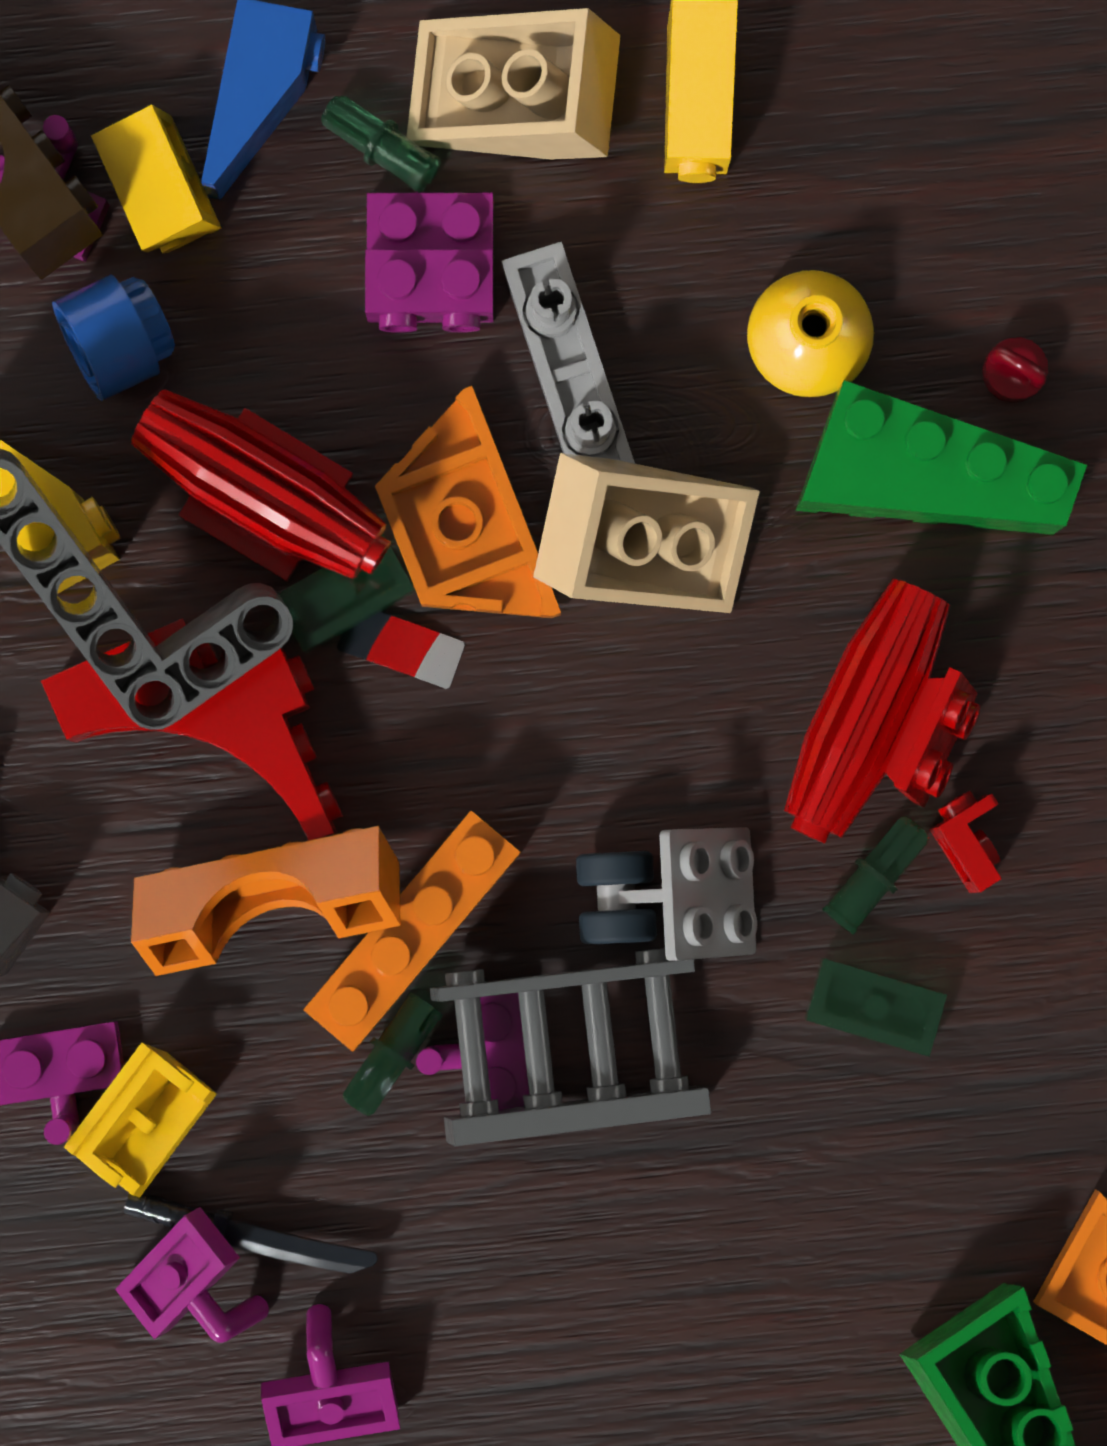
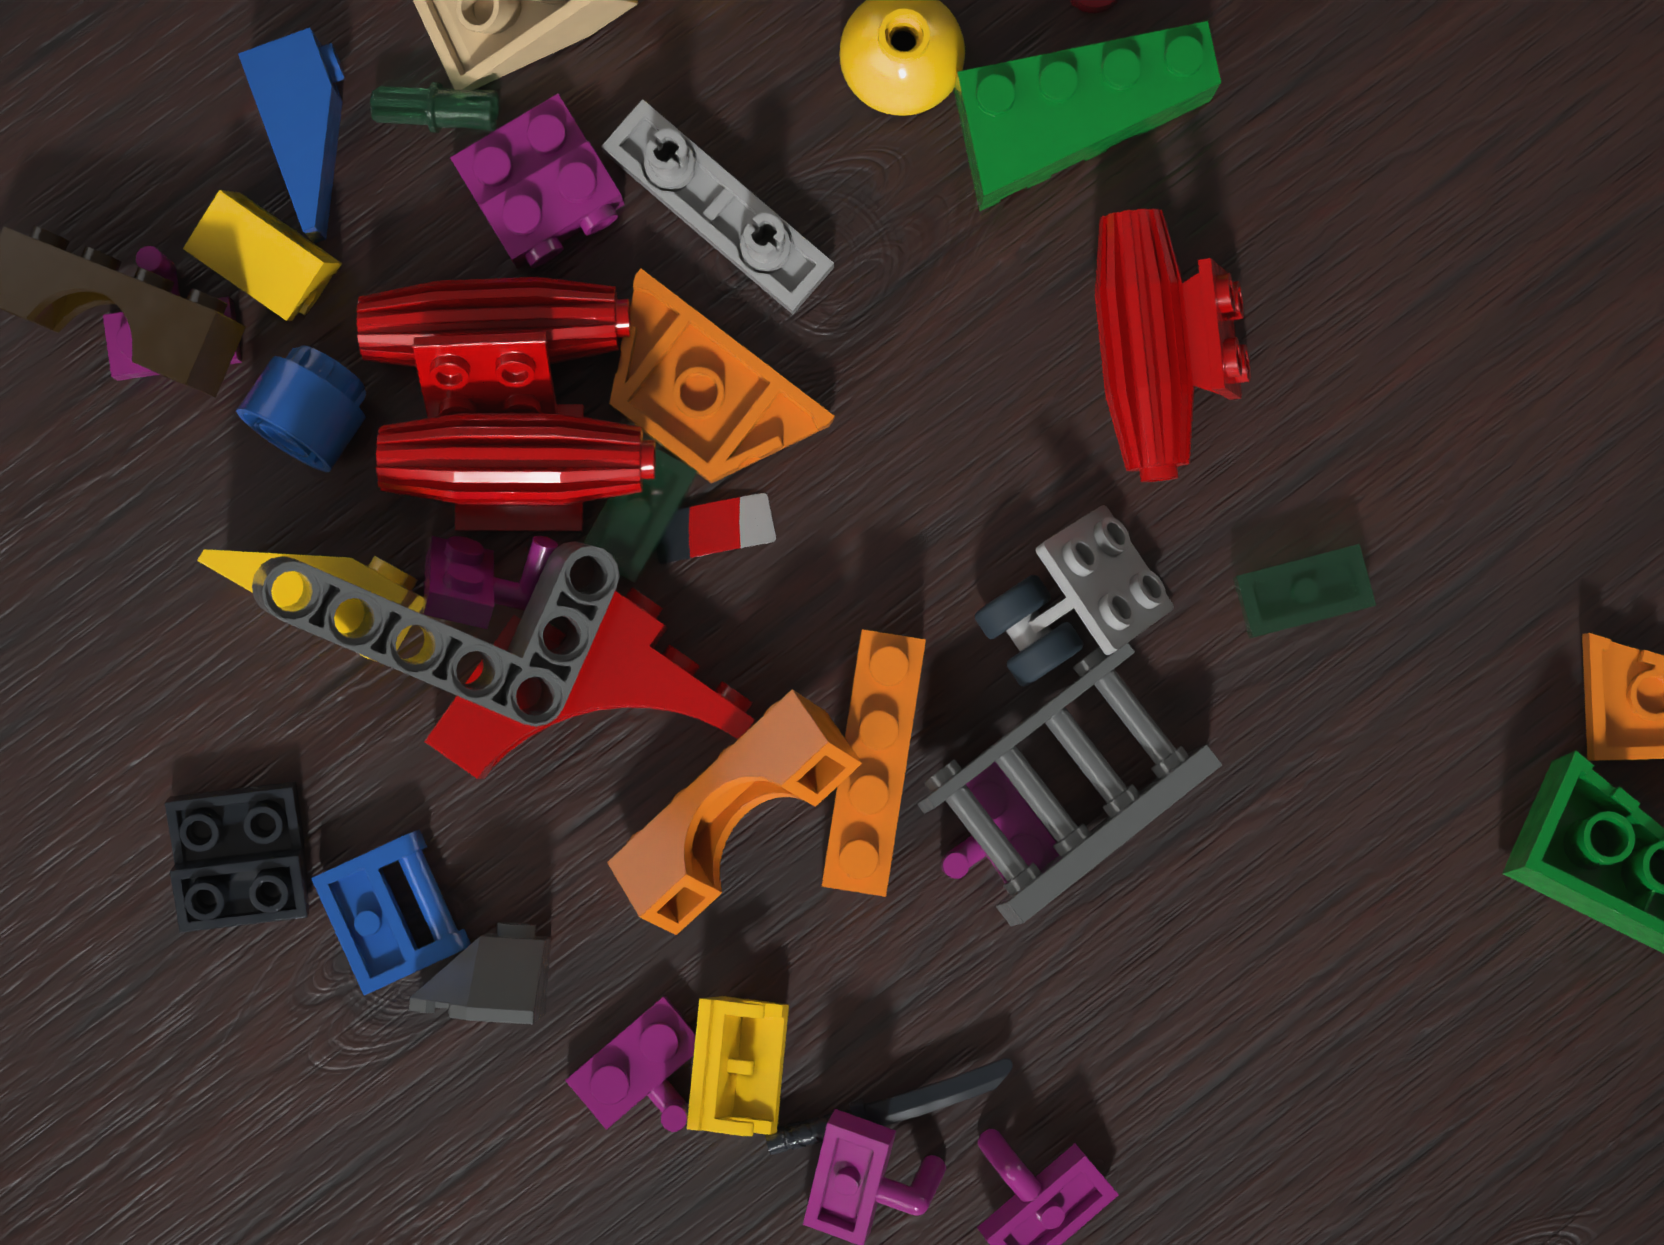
camera: 30 degrees left, 0 degrees up
(154, 568) = (463, 583): none -> magenta plate
(306, 371) = (490, 339): none -> red plate
(391, 1054) = (918, 880): clear green axle -> none
(644, 535) = (866, 307): tan slope -> none
(877, 874) = (1237, 478): clear green axle -> none
(968, 852) = (1303, 411): red bracket -> none

